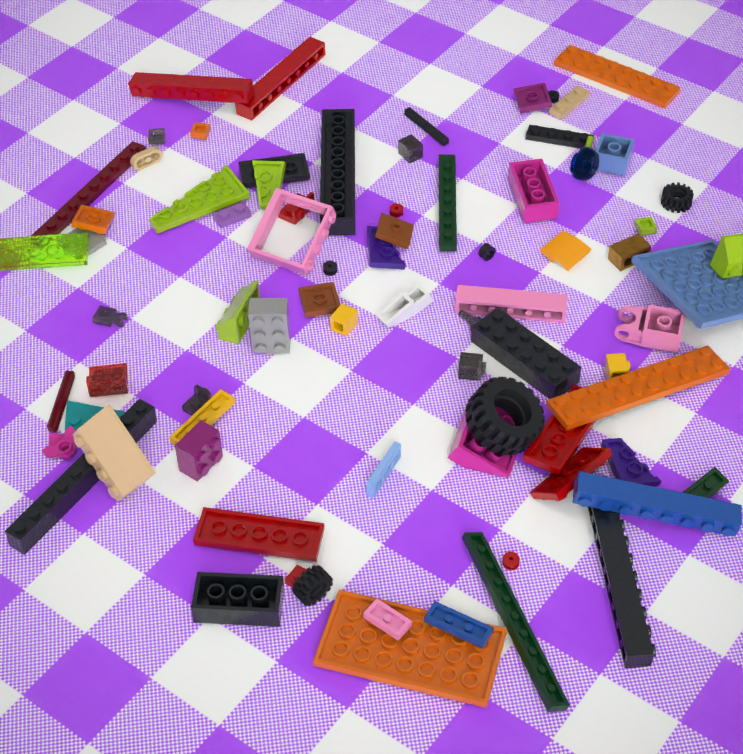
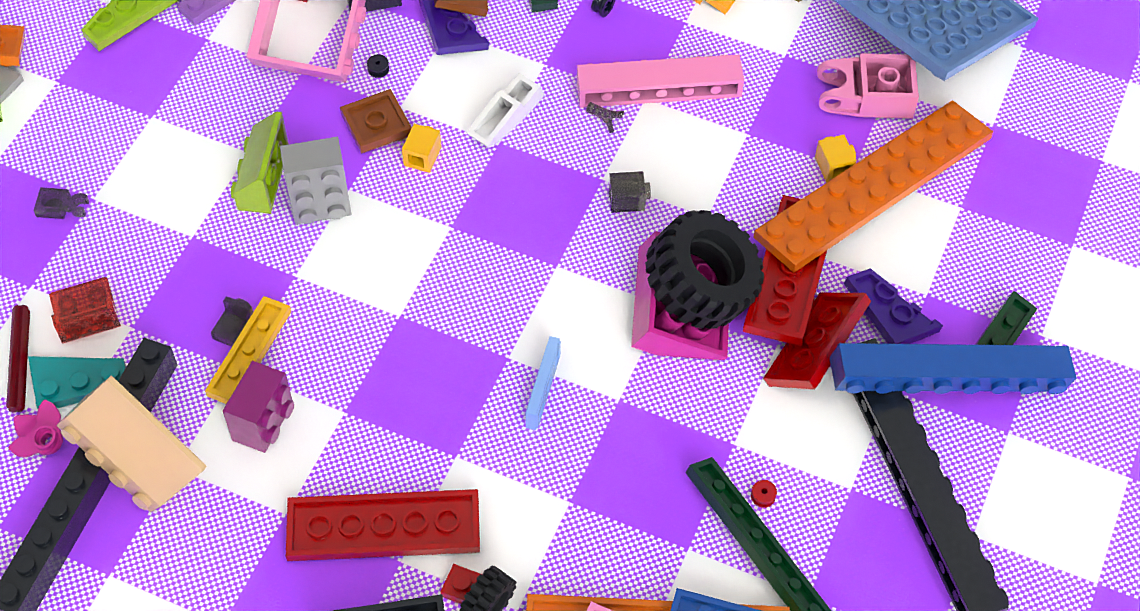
camera: 15 degrees left, 10 degrees up
(525, 354) = (701, 159): black brick -> none

